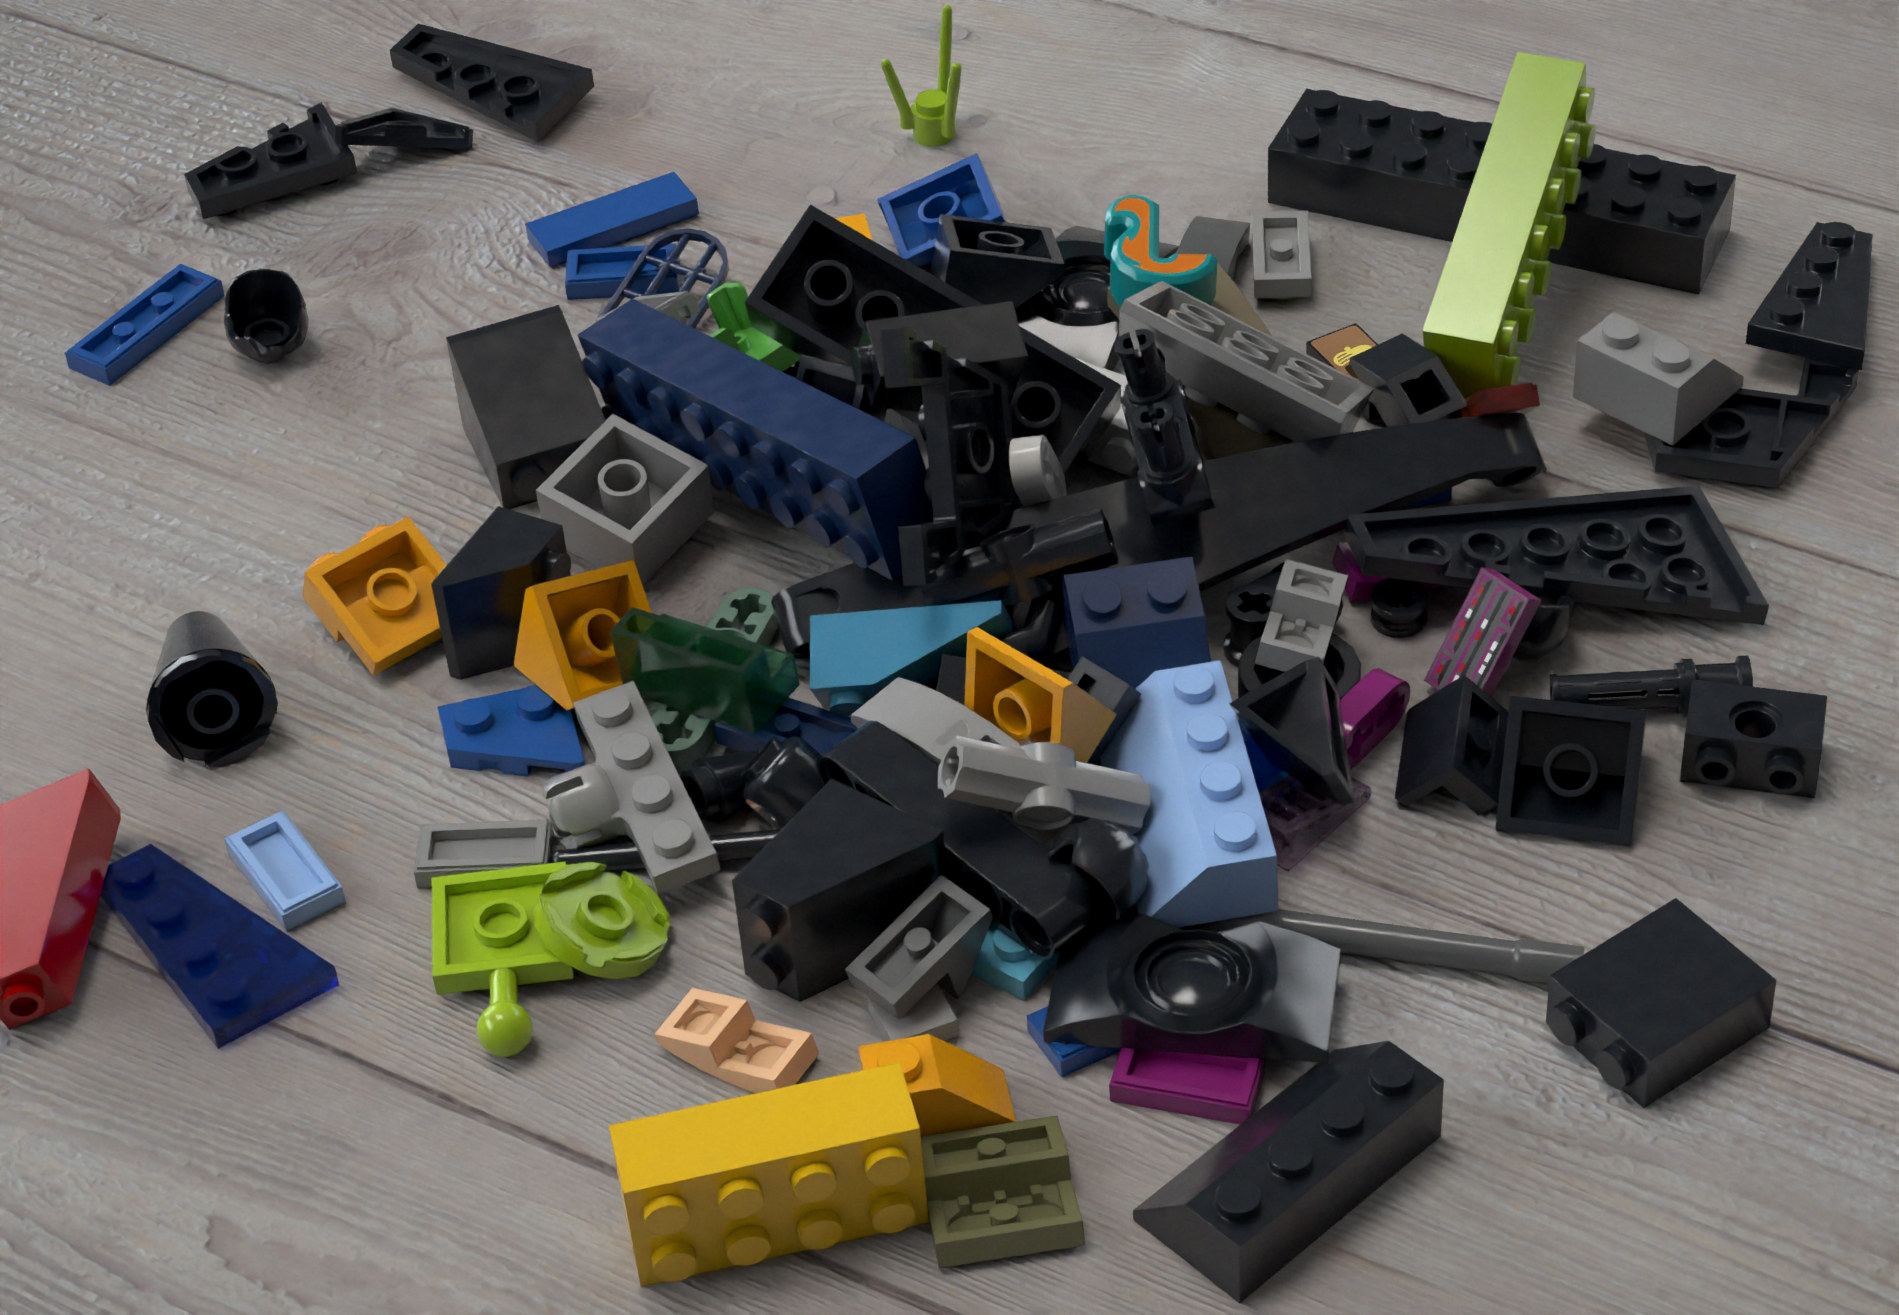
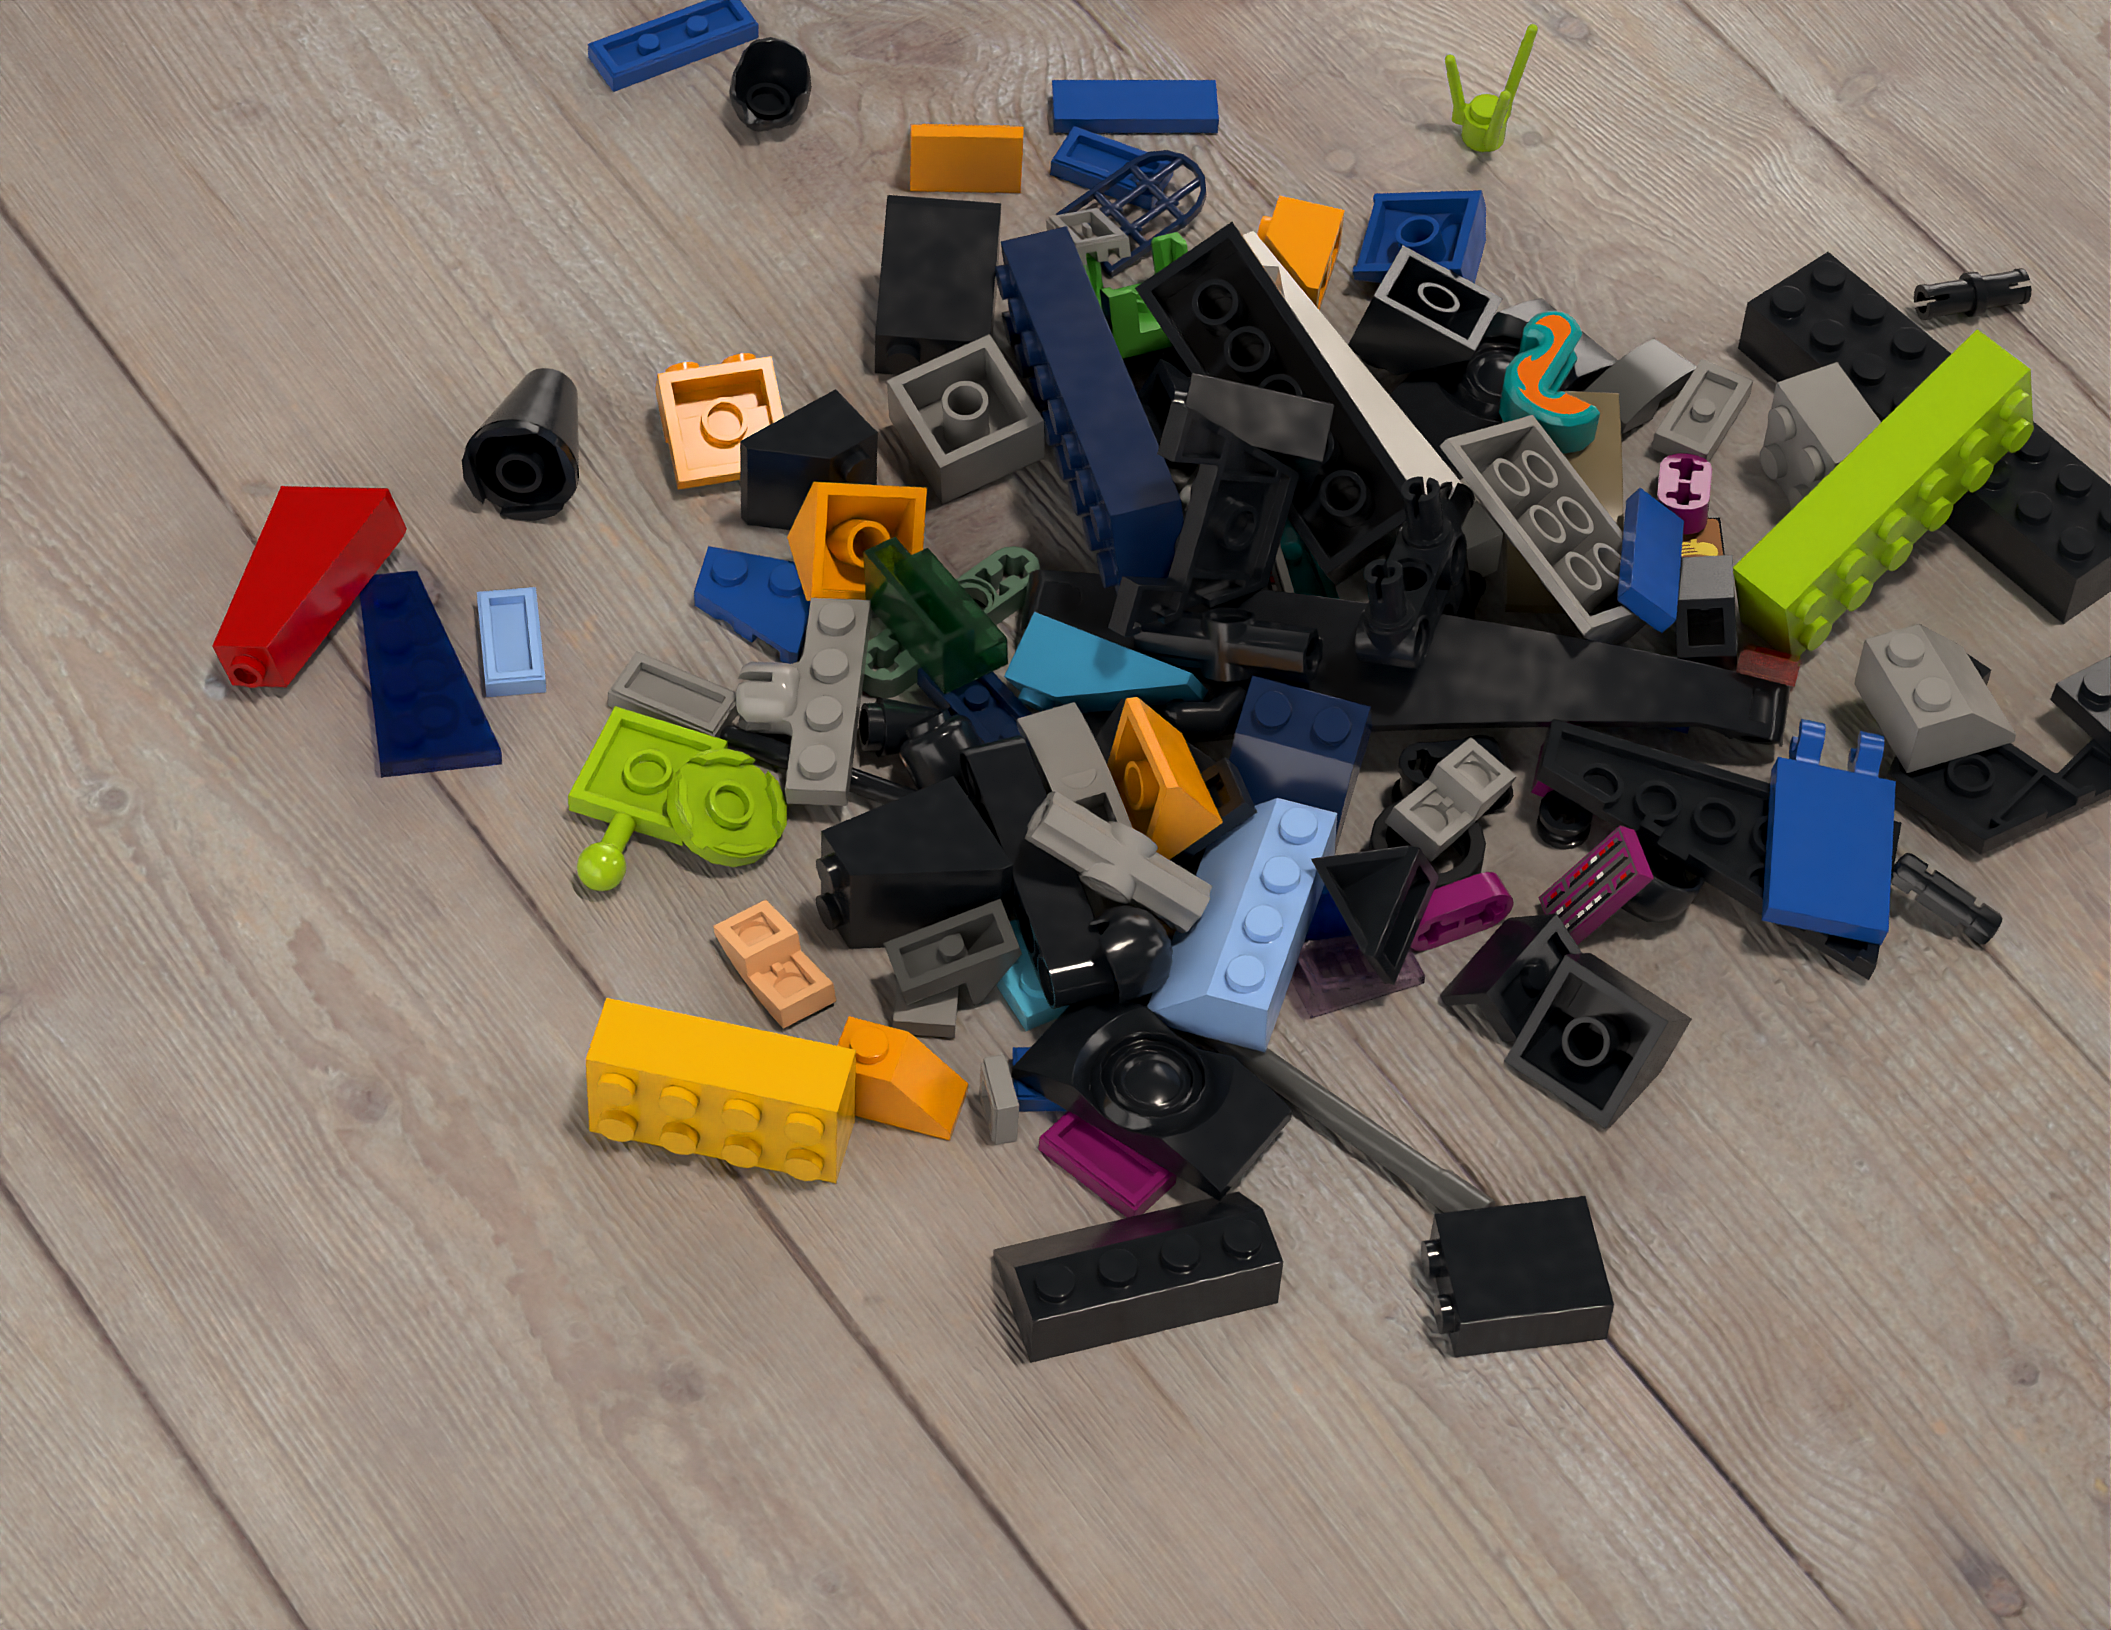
camera: 20 degrees right, 10 degrees up
(481, 297) = (966, 158): none -> light orange slope
(1000, 1192) = (900, 1184): olive slope -> none
(1035, 470) = (1299, 563): white beam -> none
(1049, 1066) = (999, 1099): none -> light grey tile
(1313, 315) = (1686, 489): none -> magenta beam
(1340, 360) = (1650, 560): none -> blue tile
(1404, 223) = (1813, 428): none -> light grey brick
(1440, 85) = (1972, 294): none -> black pin
(1648, 688) = (1747, 1007): black pin -> none
(1656, 516) = (1830, 840): none -> blue tile
(1753, 738) = (1802, 1089): black brick -> none
(1783, 528) = (1945, 898): none -> black axle

